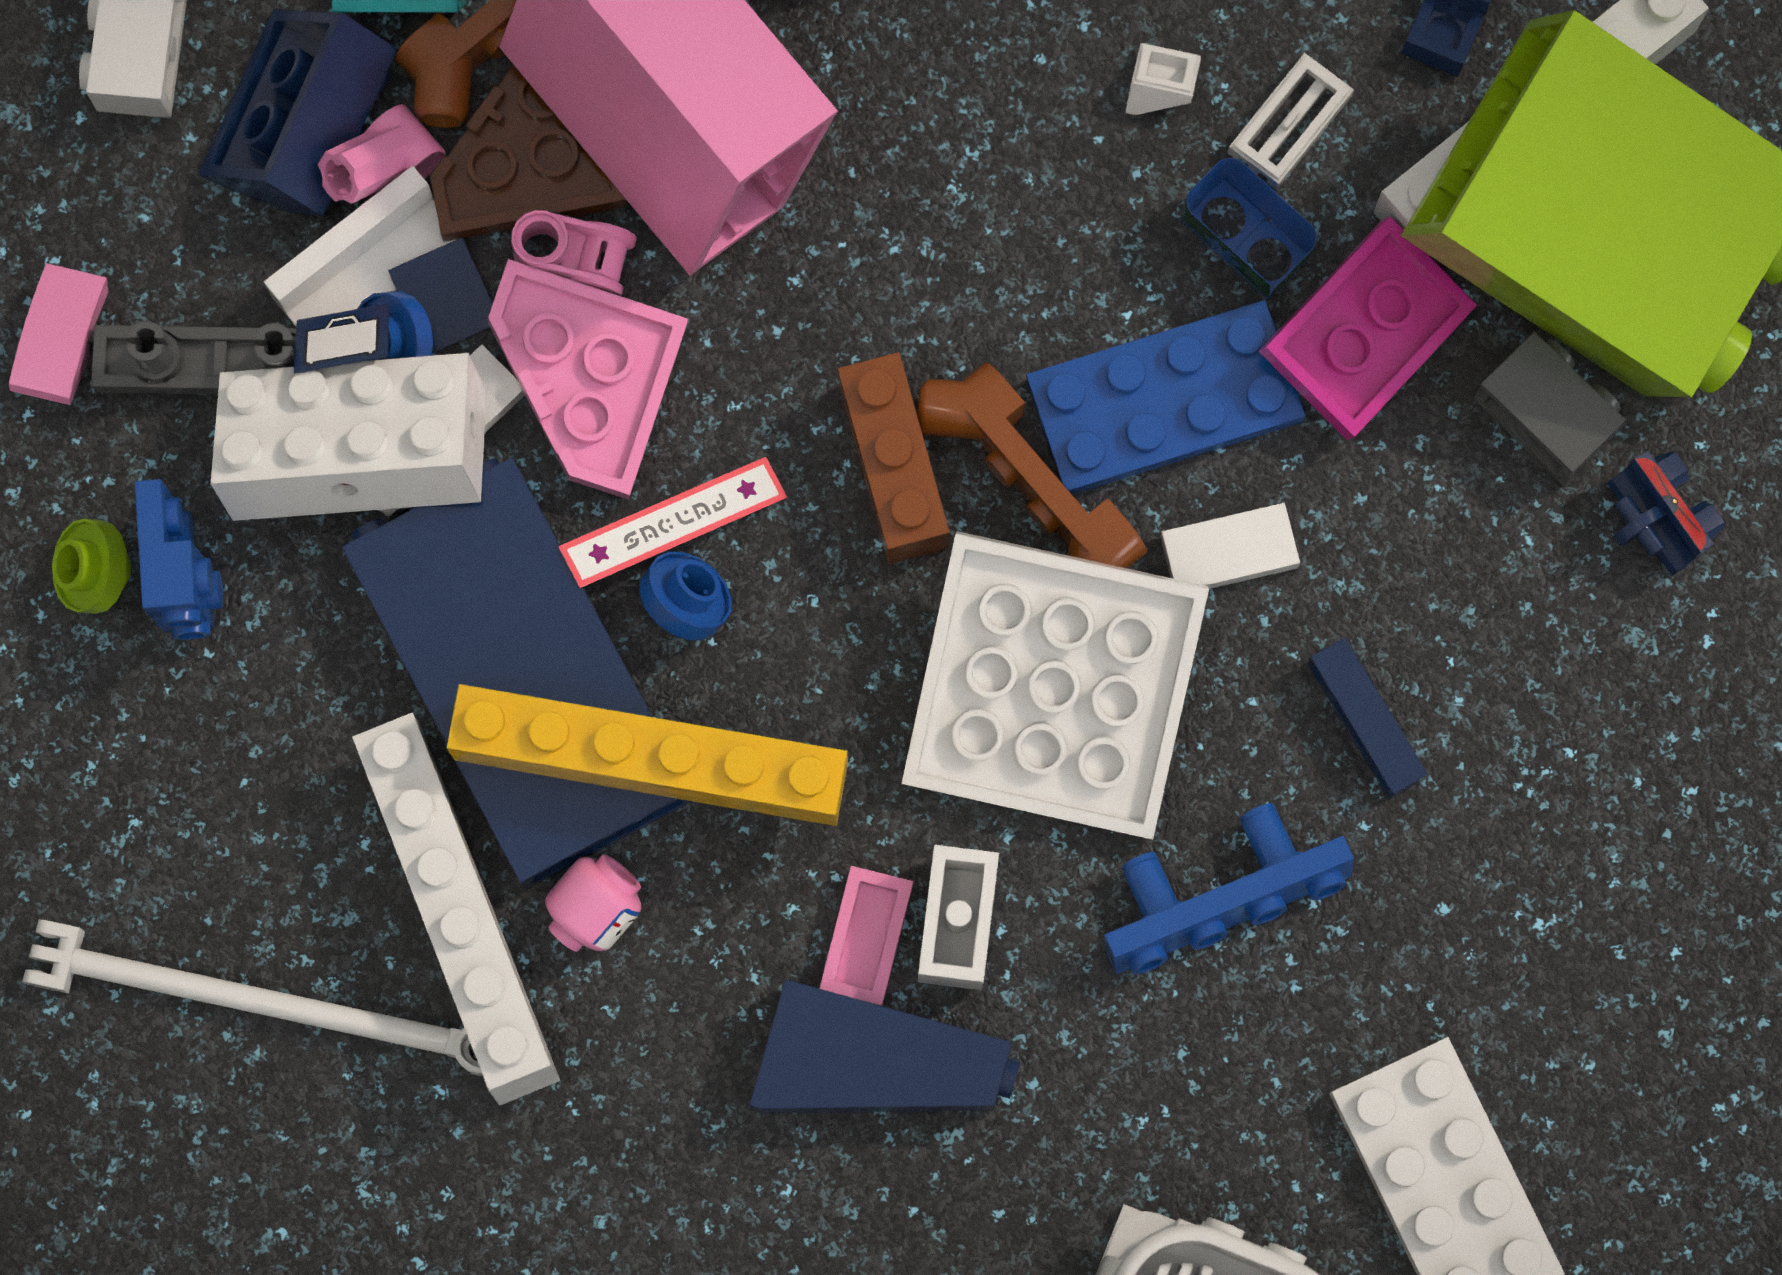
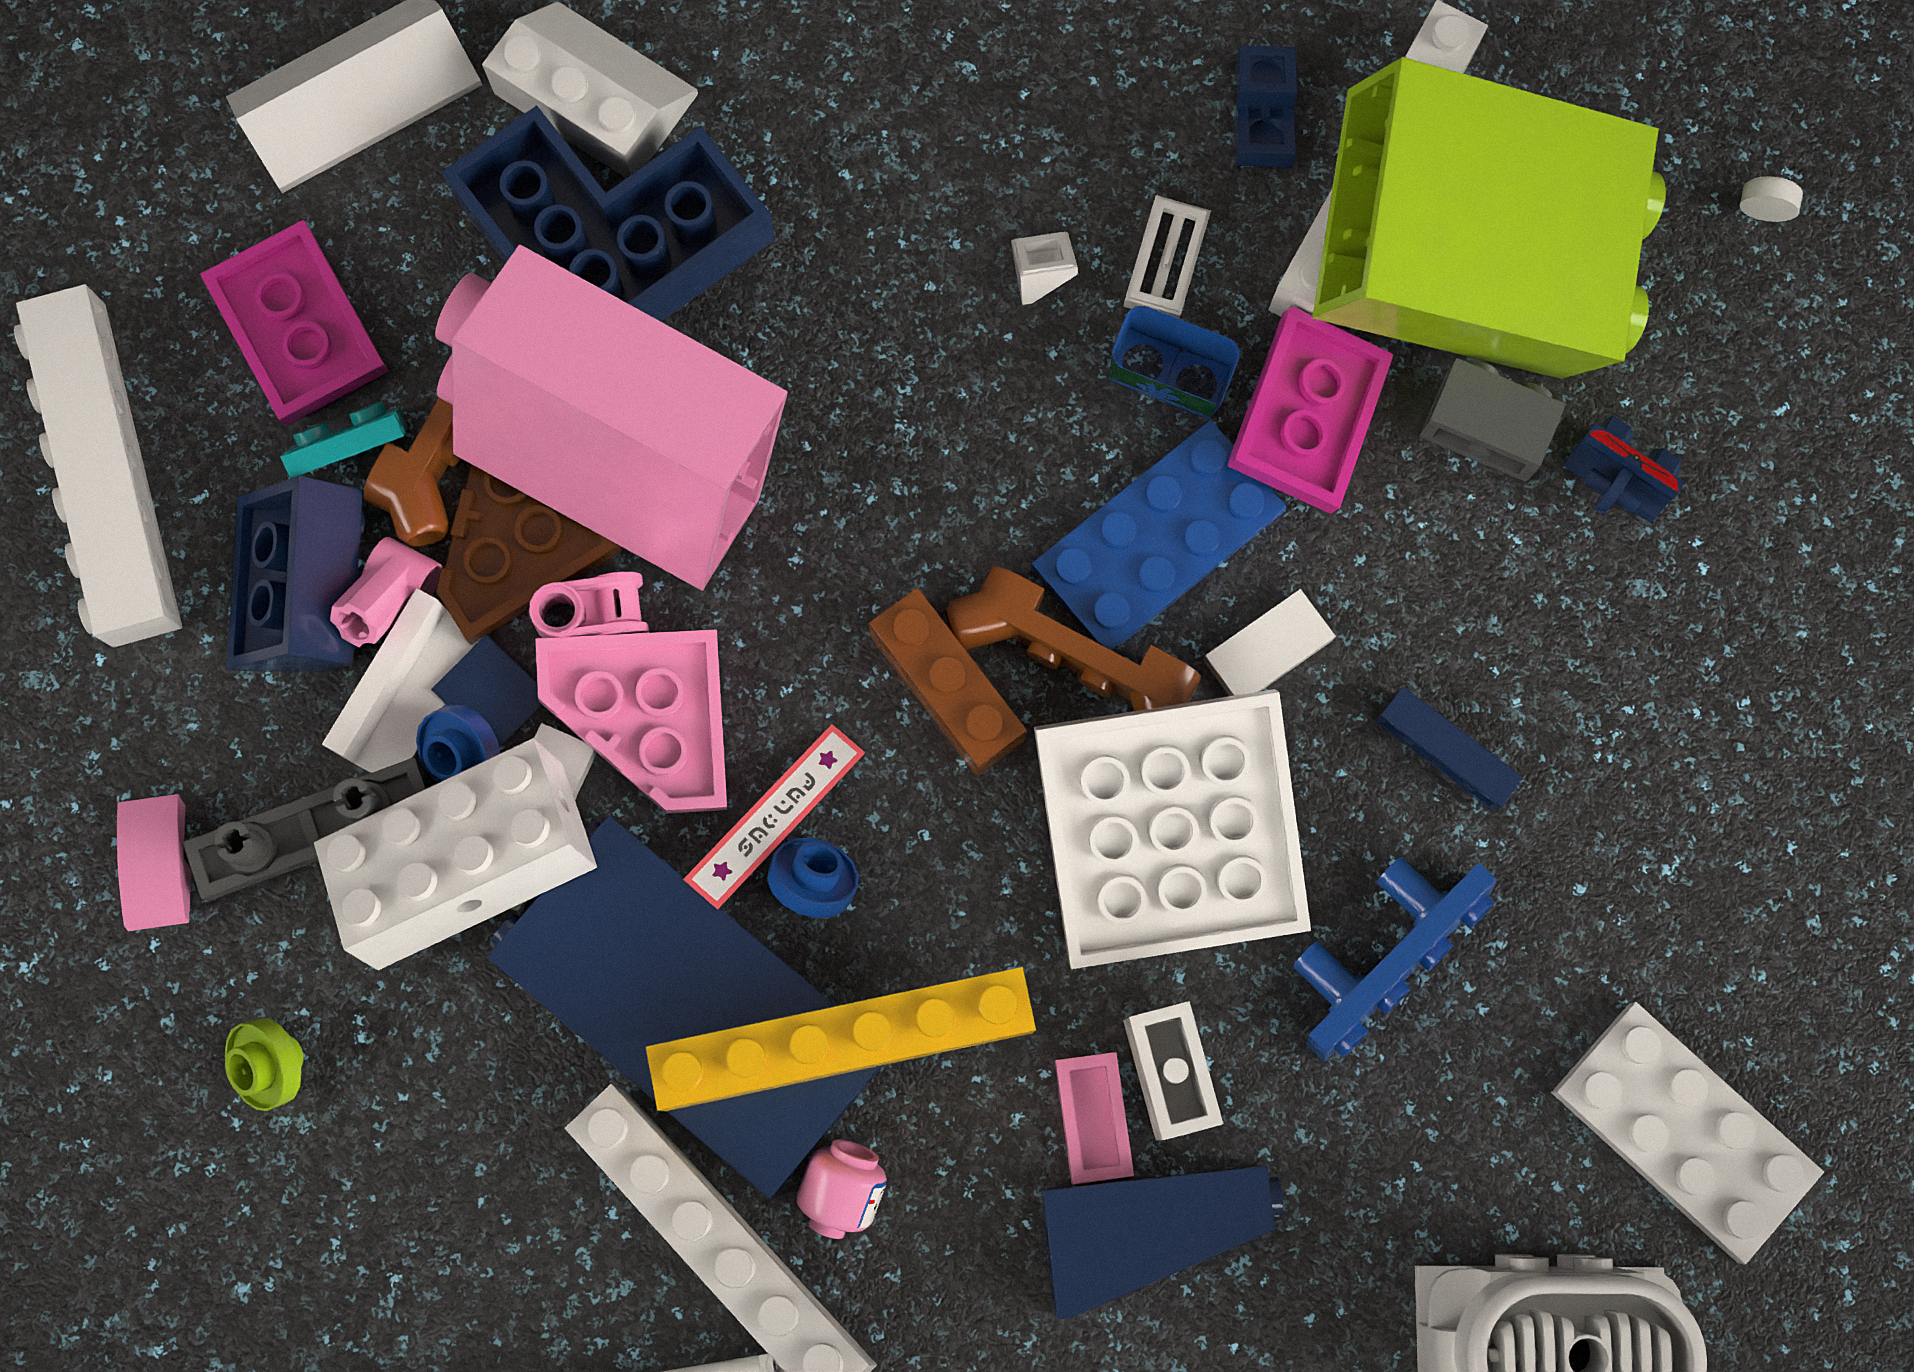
camera: 25 degrees left, 0 degrees up
(175, 577) = (345, 1047): blue plate -> none
(341, 338) = (413, 769): sticker -> none

